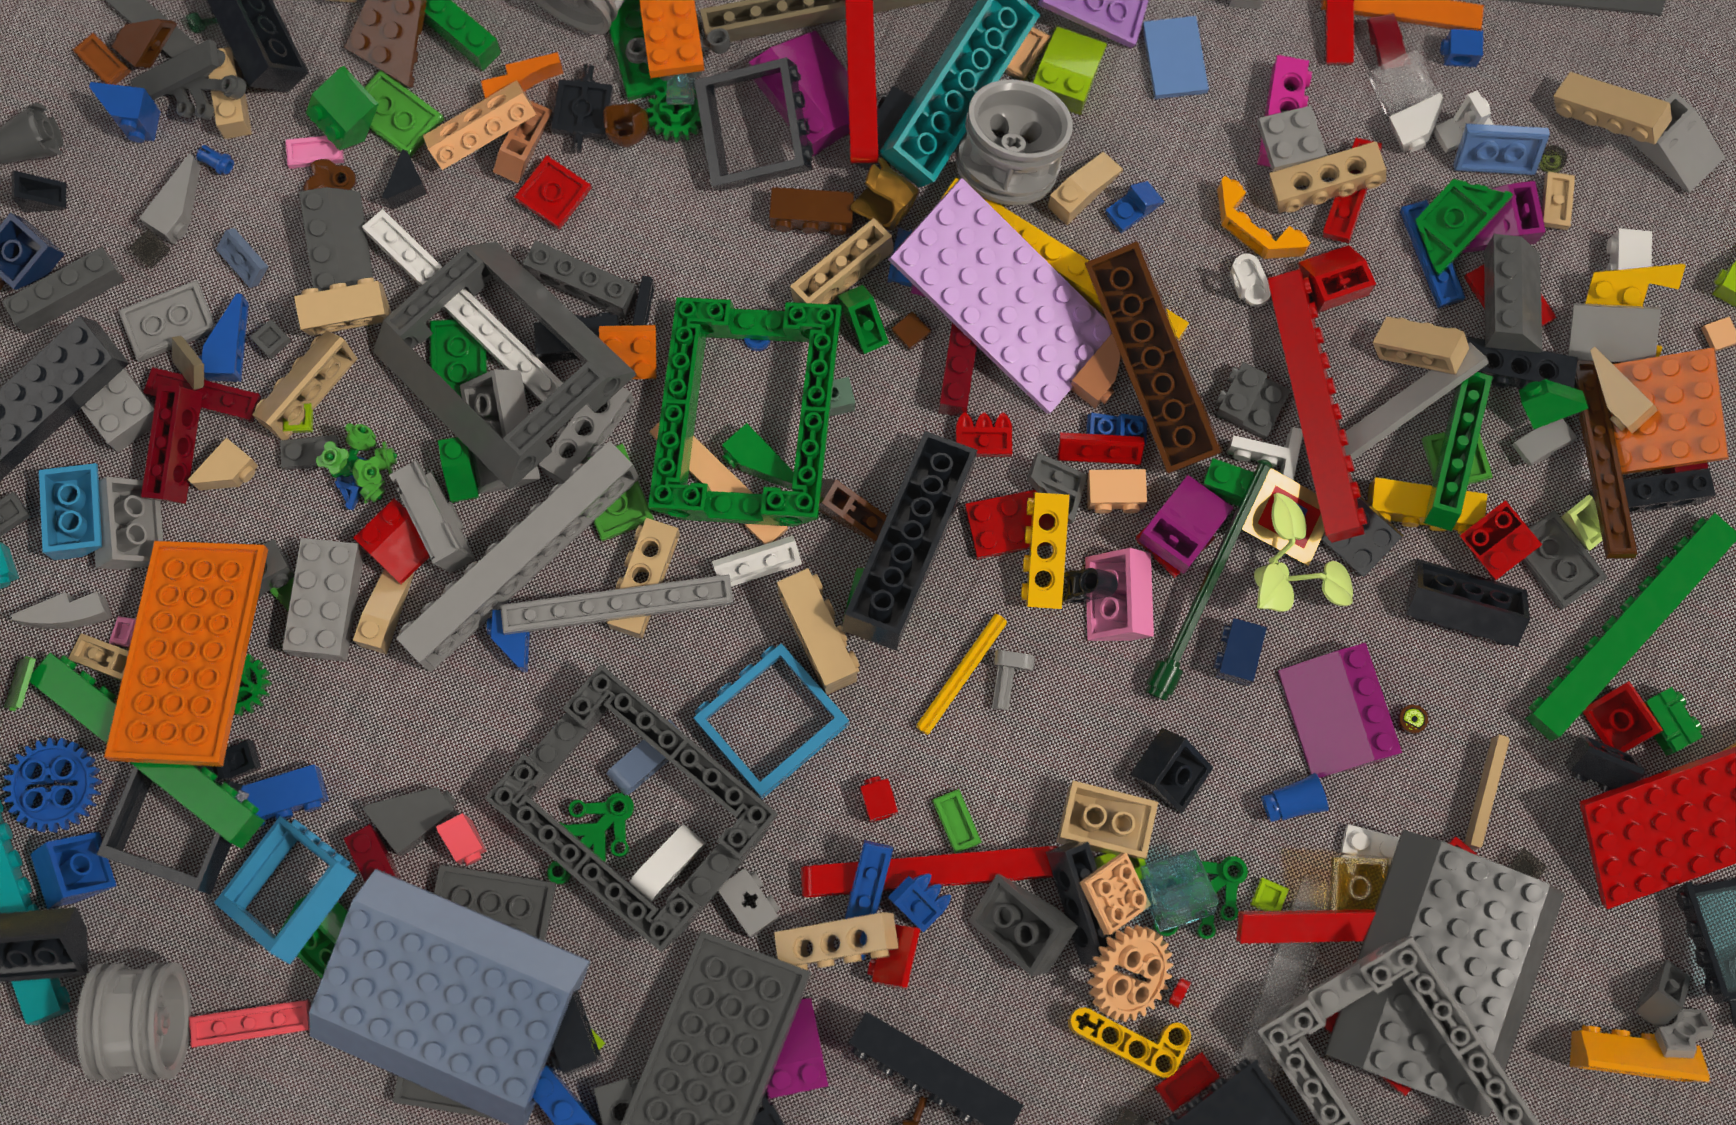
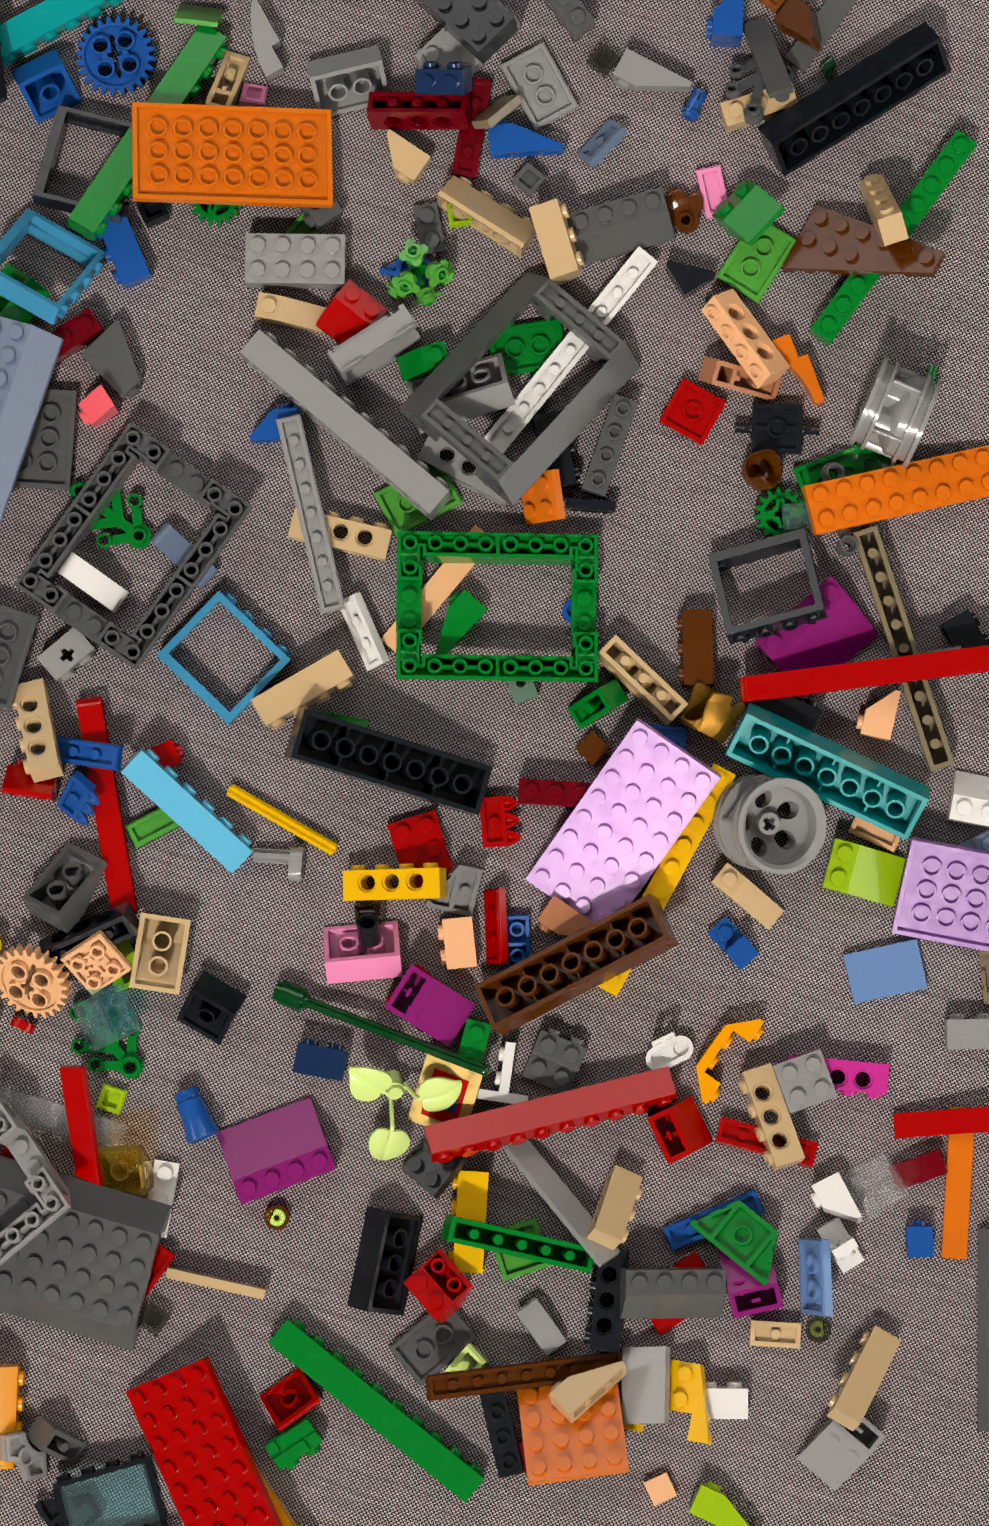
camera: 90 degrees right, 10 degrees up
(70, 511) = (352, 33): dark azure slope -> none
(139, 407) = (443, 79): none -> dark blue brick
(850, 510) = (418, 709): reddish brown slope -> none
(905, 33) = (879, 718): none -> light nougat slope
(943, 776) = (187, 810): none -> medium azure brick
(1550, 402) = (573, 1328): green slope -> none
(1603, 764) = (249, 1383): black slope -> none

